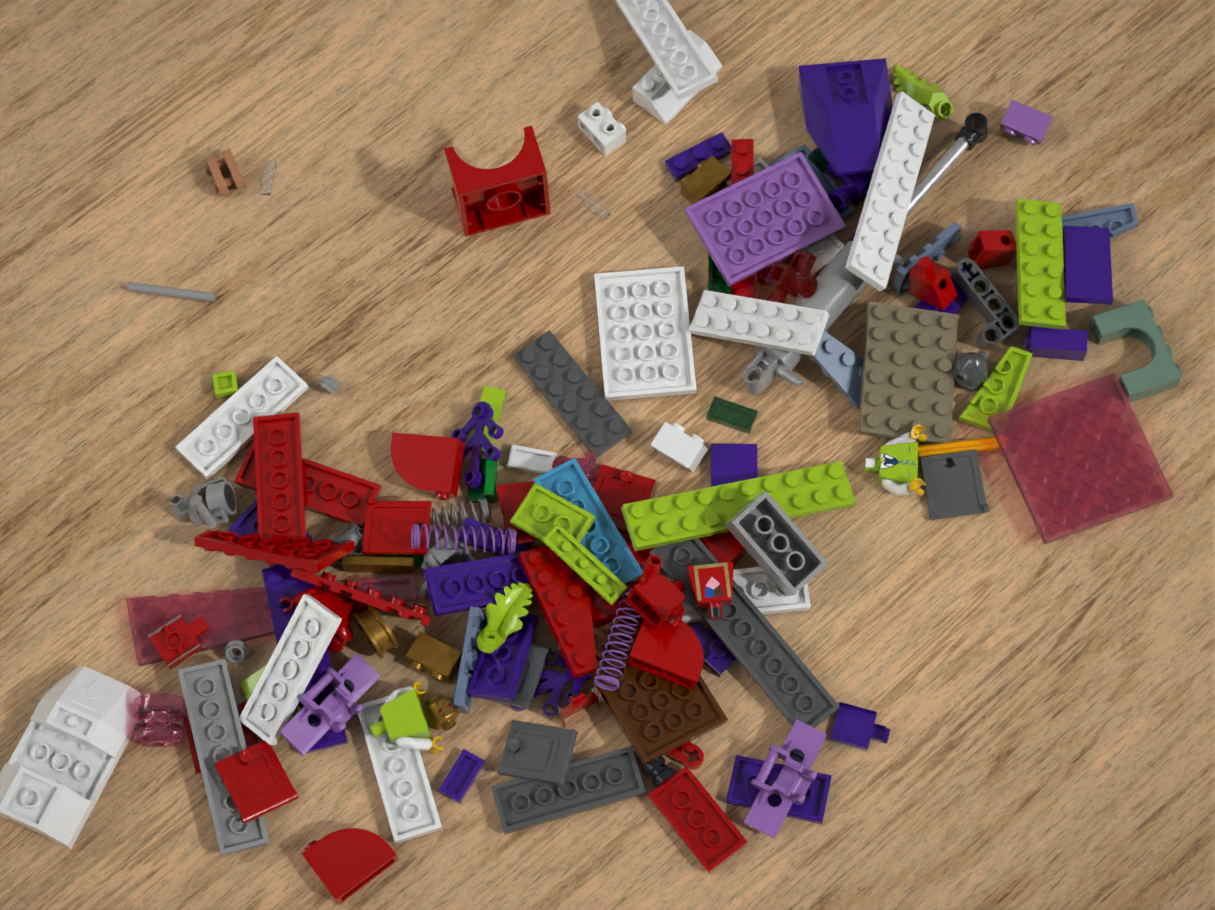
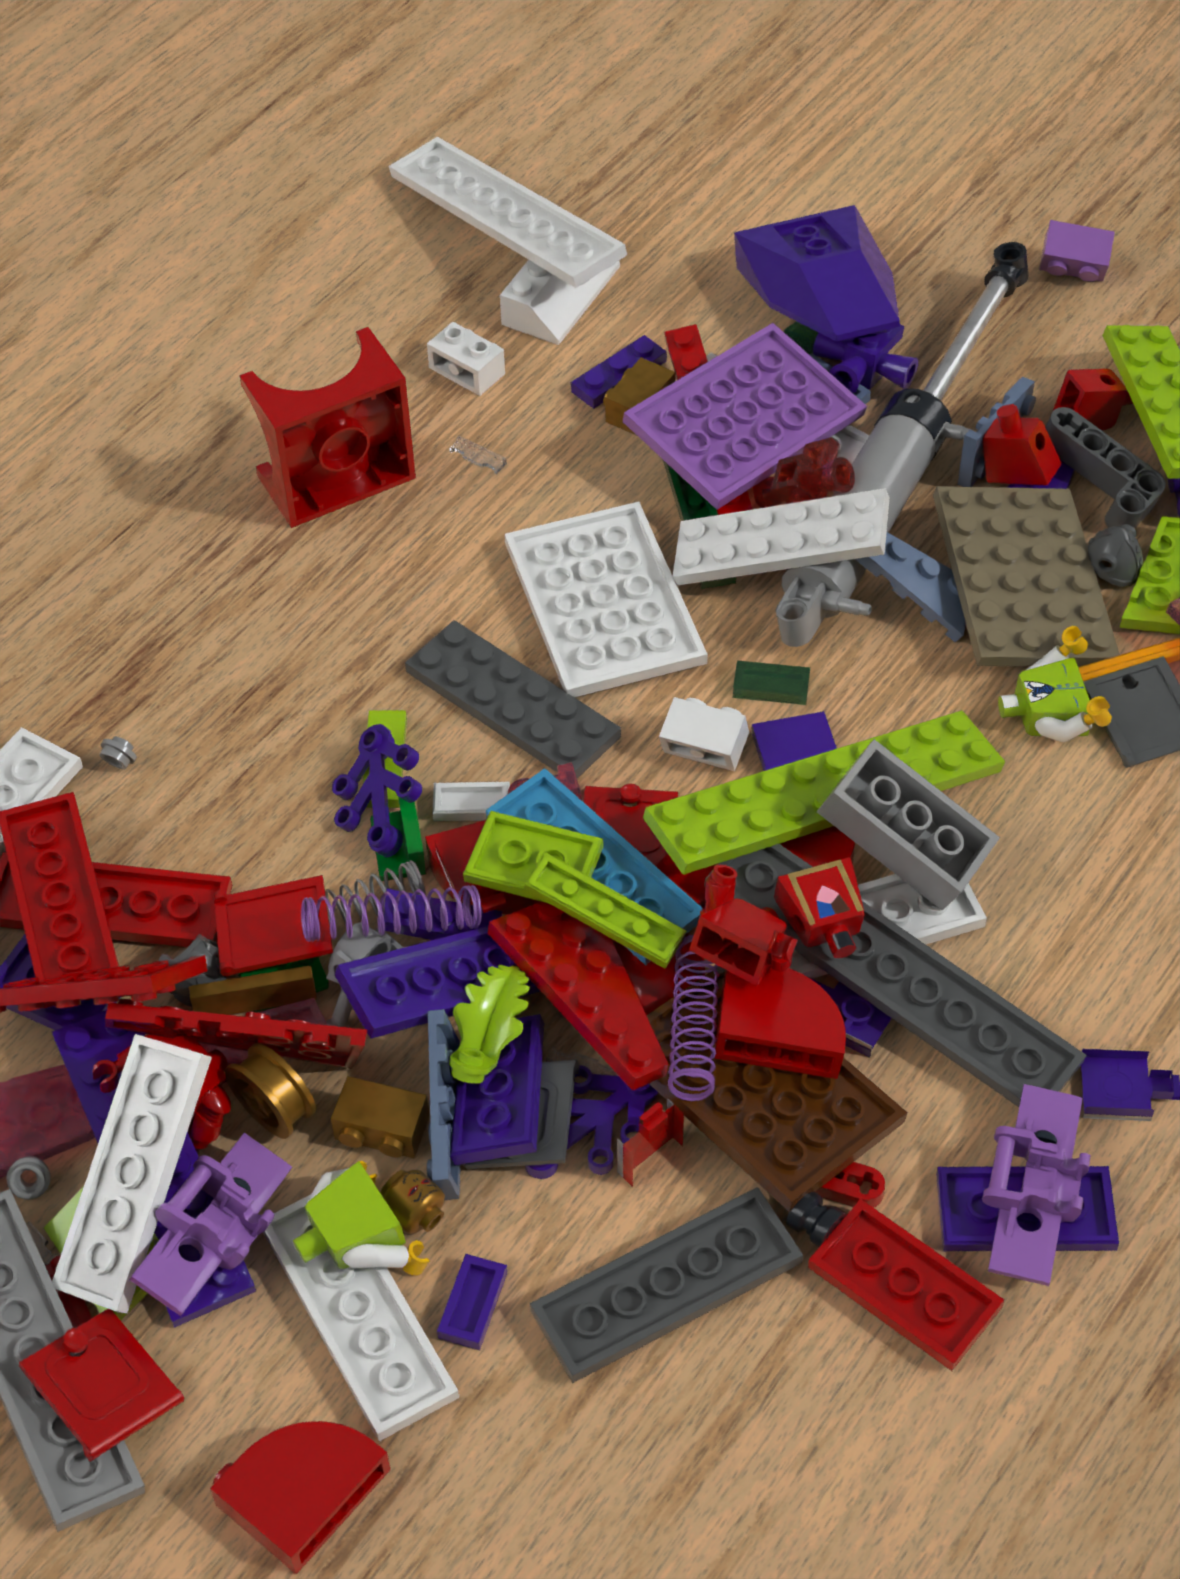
camera: 15 degrees left, 15 degrees down
(429, 463) = (305, 827): red brick -> none
(542, 752) = (604, 1232): dark grey container -> none
(890, 192) = (921, 348): white plate -> none
(922, 93) = (910, 248): lime plant -> none

